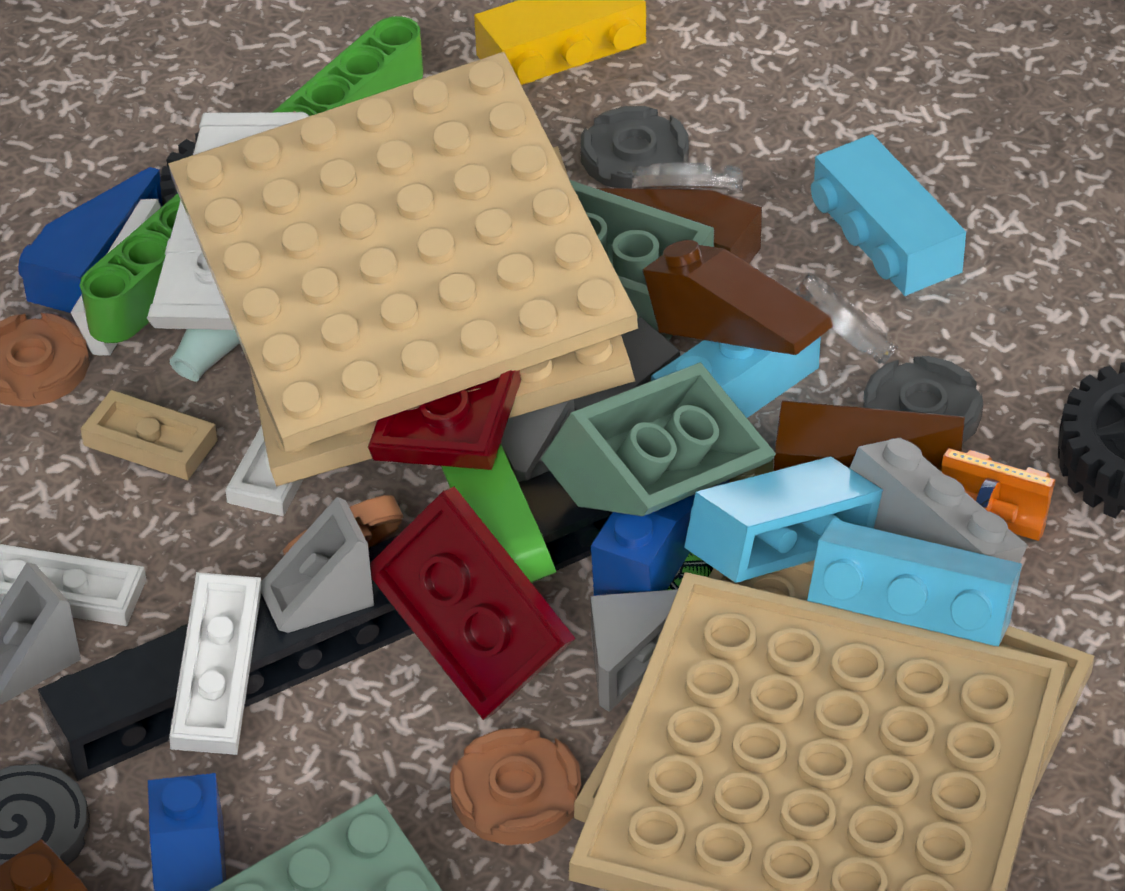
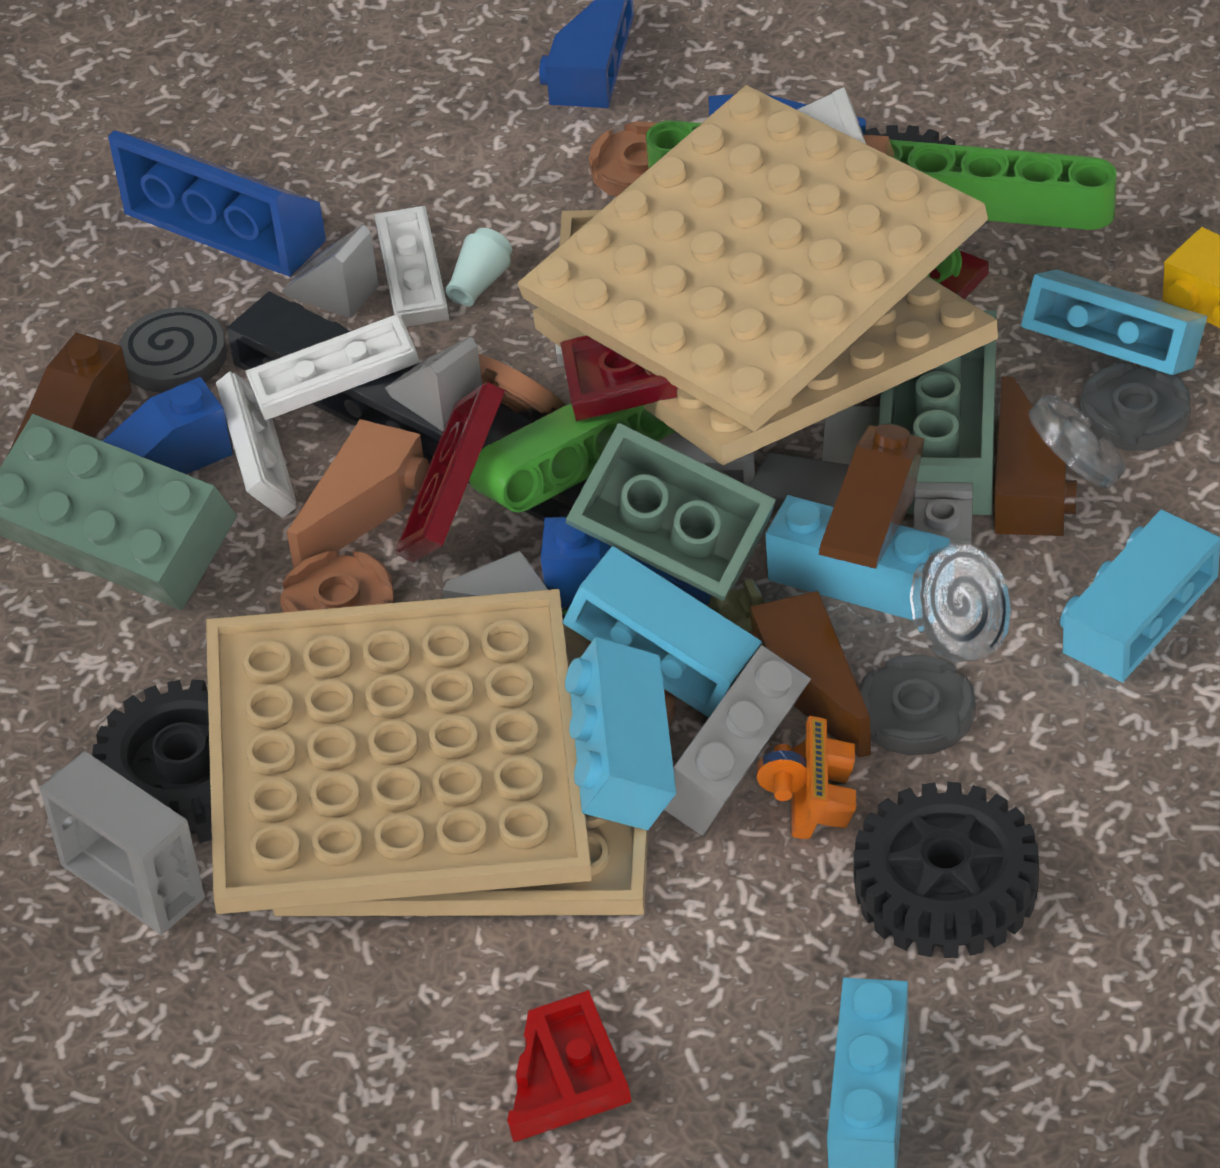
camera: 70 degrees right, 0 degrees up
(101, 520) = (479, 264): none -> light aqua cone
(259, 779) = (256, 446): none -> white tile
(375, 703) = (359, 490): none -> nougat slope
(579, 94) = (1114, 321): none -> medium azure brick

